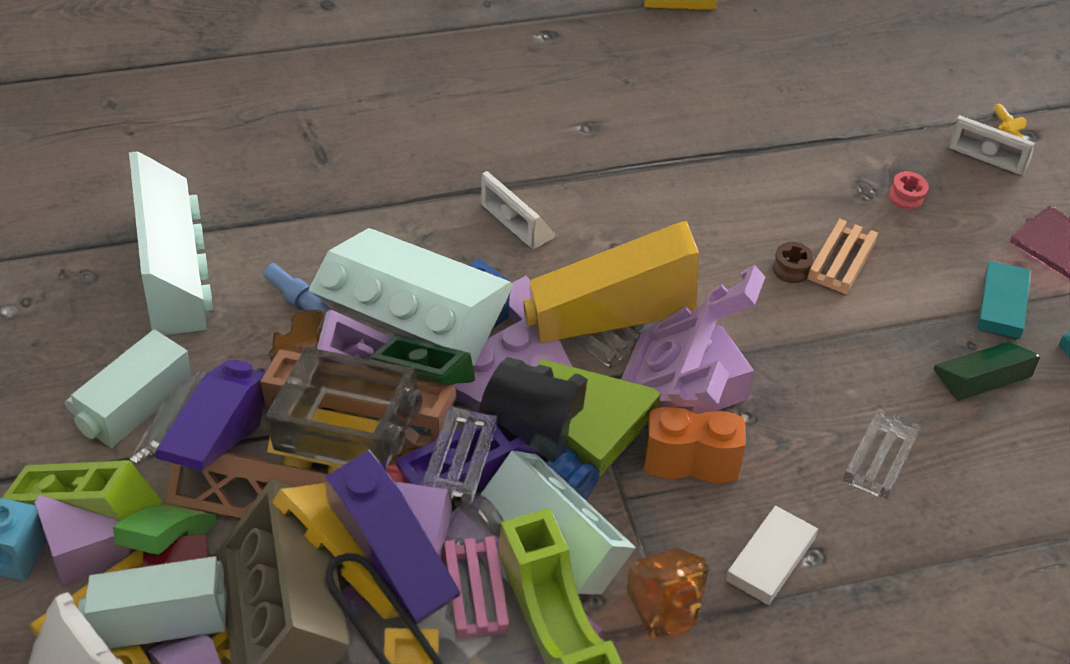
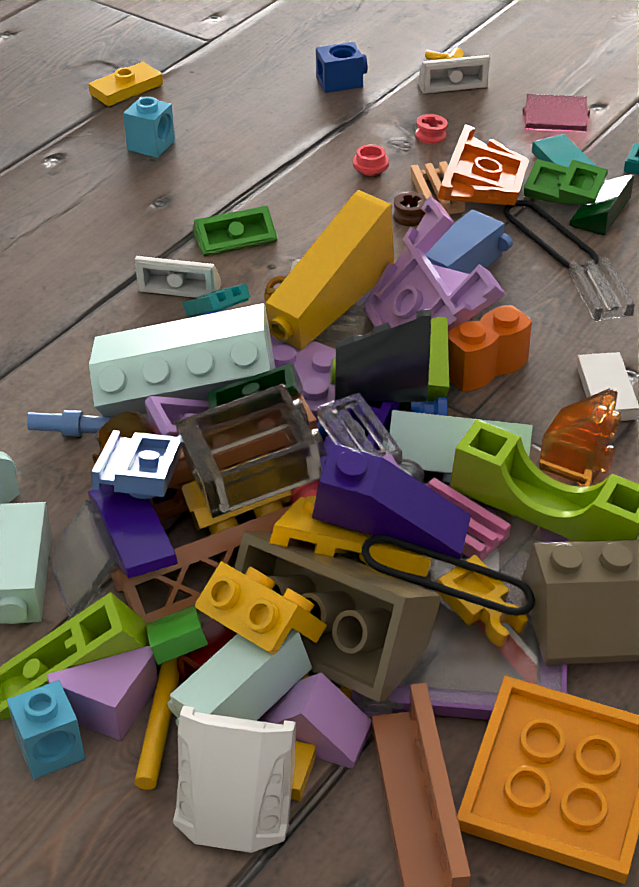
camera: 35 degrees left, 5 degrees down
(213, 551) = (255, 610): none -> yellow bracket
(251, 363) = (138, 464): none -> plate
(496, 249) = (217, 300): none -> teal tile
(614, 193) = (234, 230): none -> bright green slope
(643, 48) = (149, 126): none -> medium azure brick
(785, 333) = (470, 242): none -> medium blue brick
(810, 191) = (370, 160): none -> coral plate
(883, 365) = (555, 223): none -> black piece
(886, 77) = (340, 67): none -> blue brick
(894, 264) = (483, 172): none -> orange wing
(966, 323) = (565, 185): none -> bright green slope

